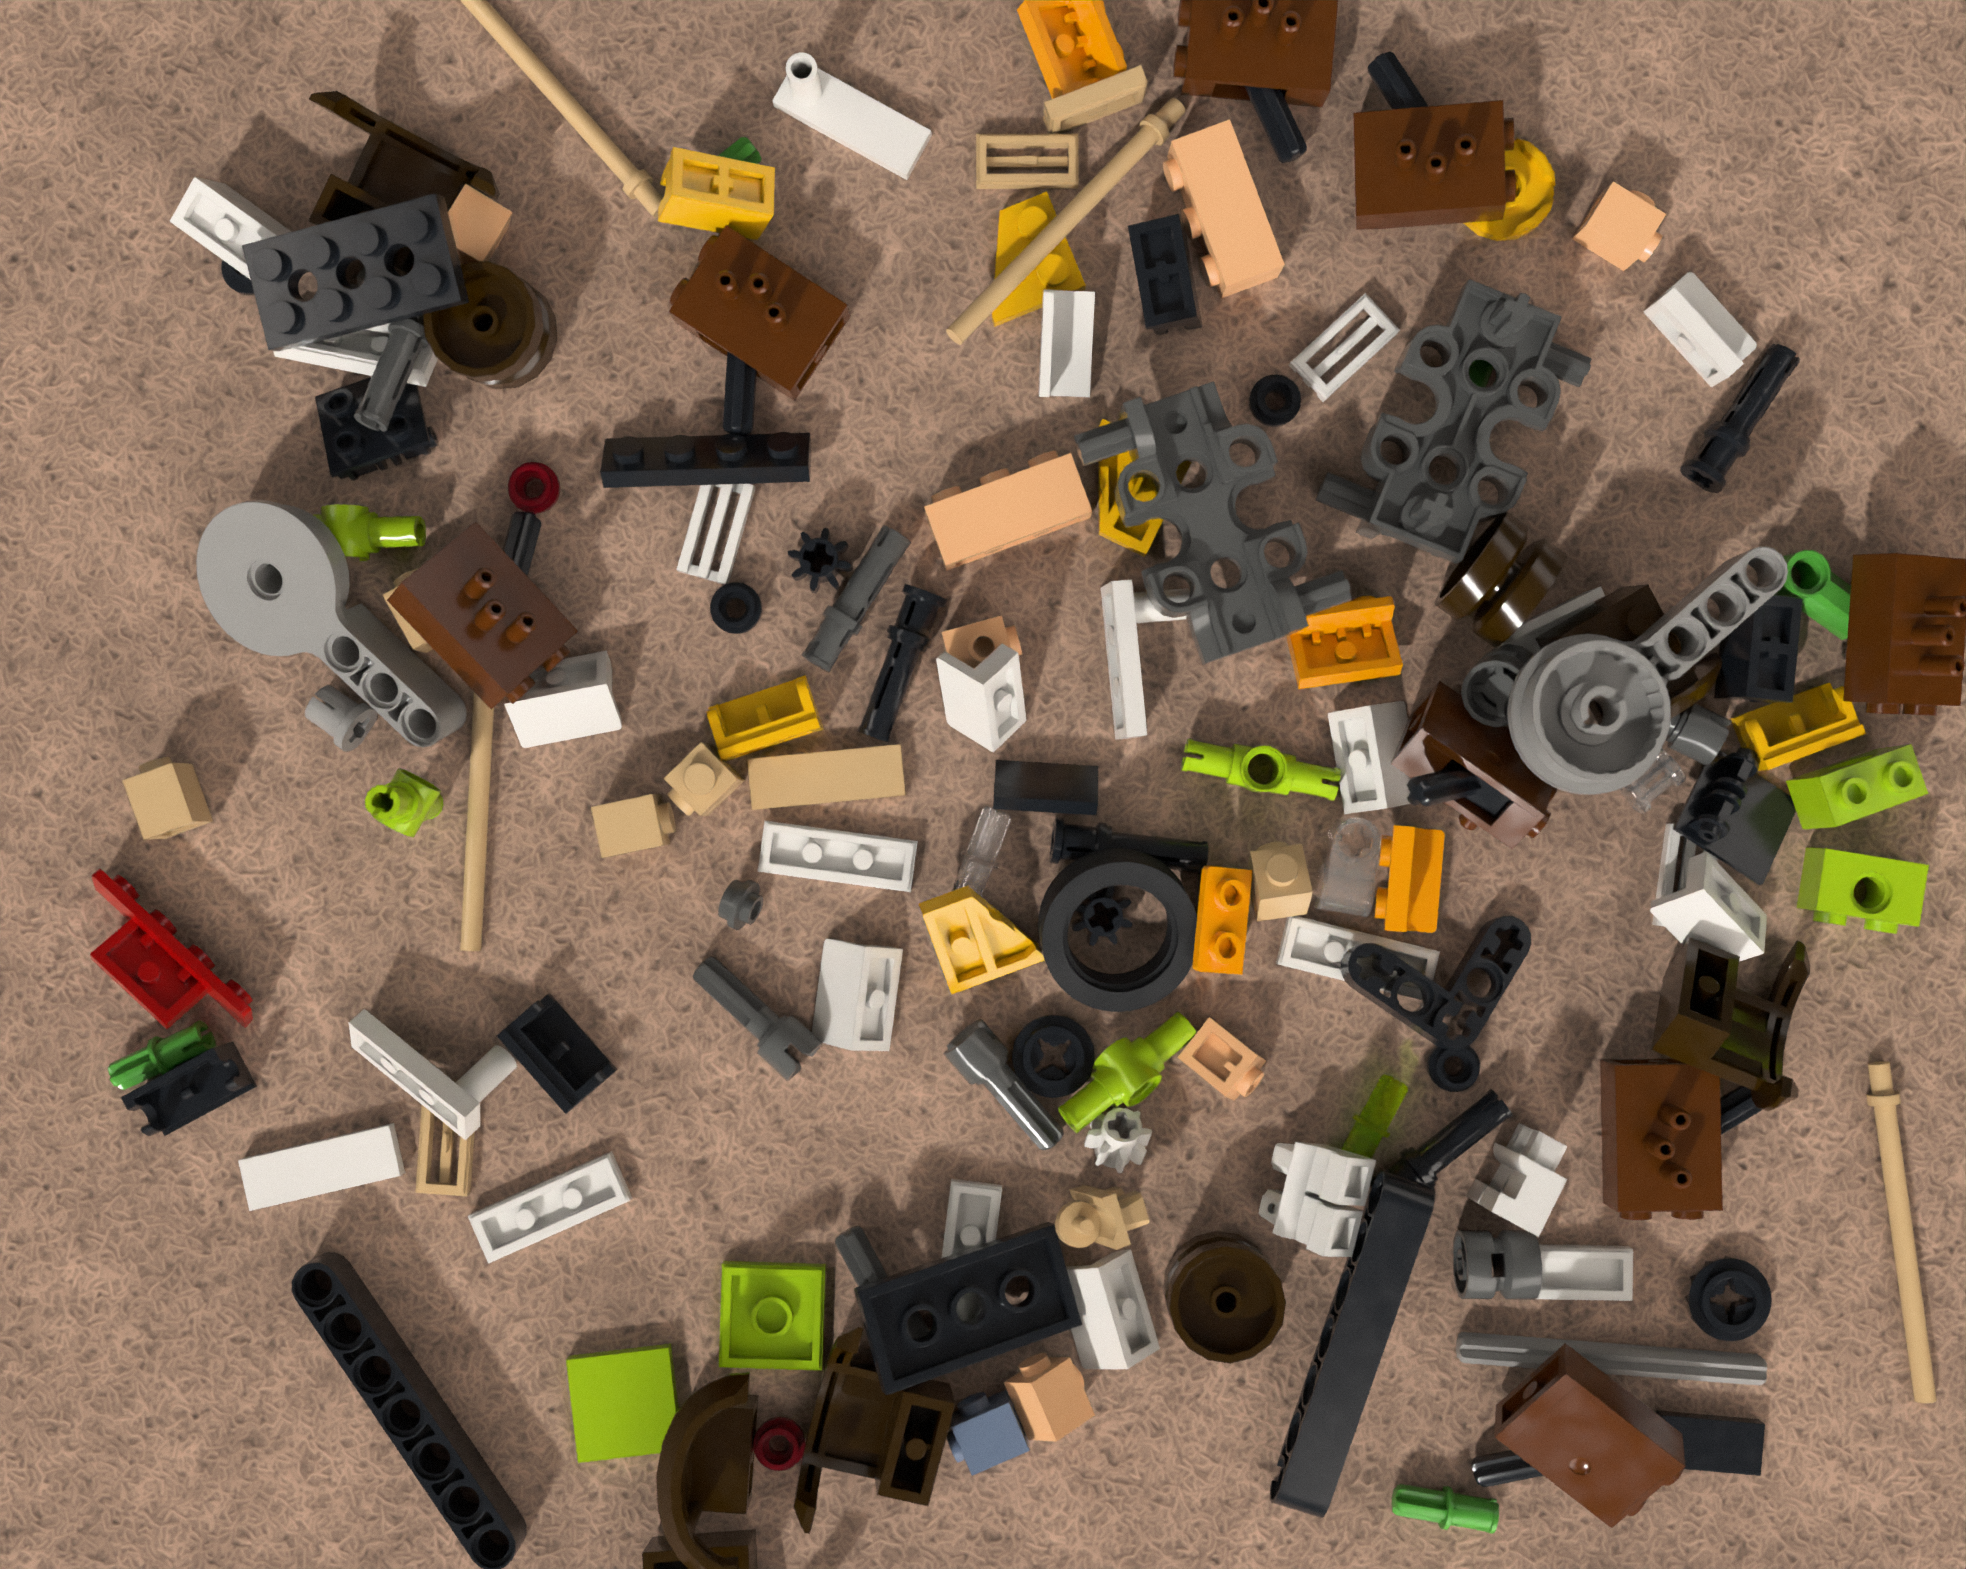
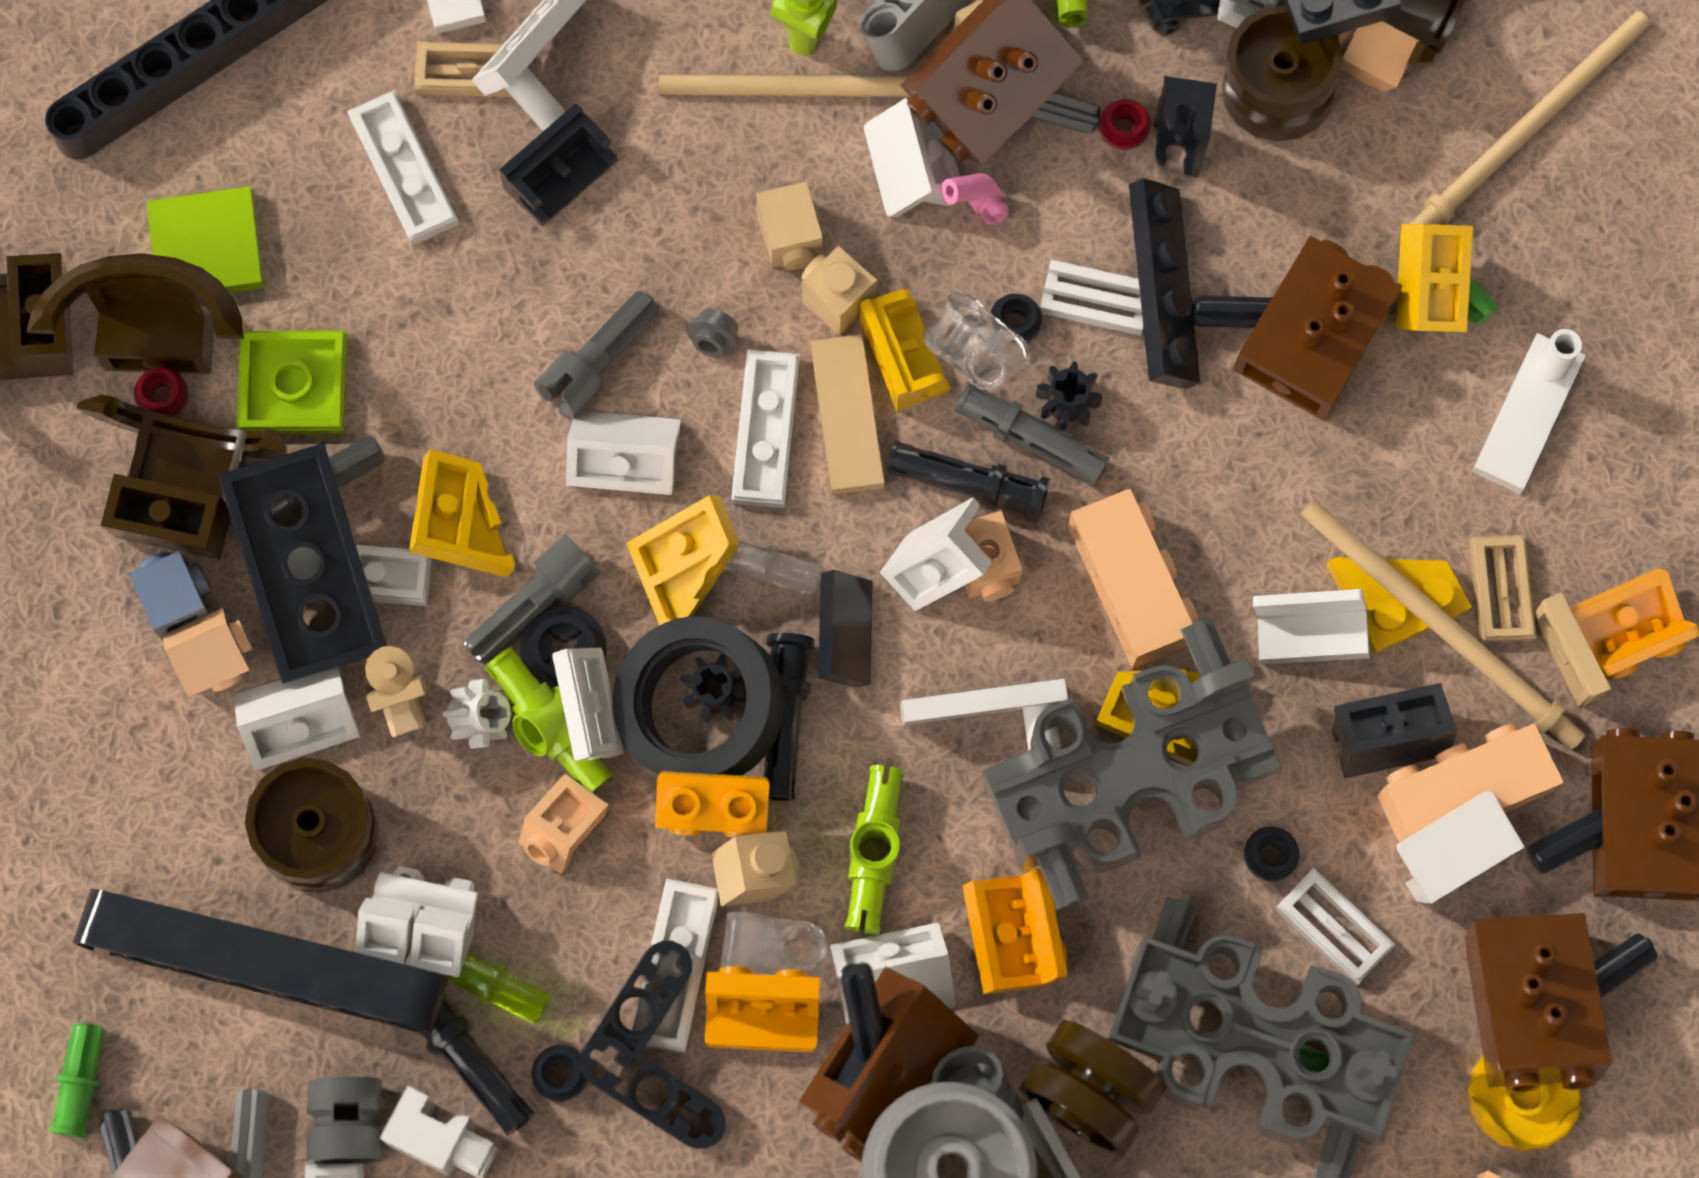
camera: 85 degrees right, 15 degrees down
(537, 424) = (1184, 120): none -> black hinge
(604, 635) = (981, 194): none -> bright pink arm
(768, 644) = (973, 340): none -> clear piece
(918, 1158) = (457, 517): none -> yellow wing
(1117, 1035) = (587, 703): none -> white tile
(1288, 223) = (1458, 847): none -> white panel

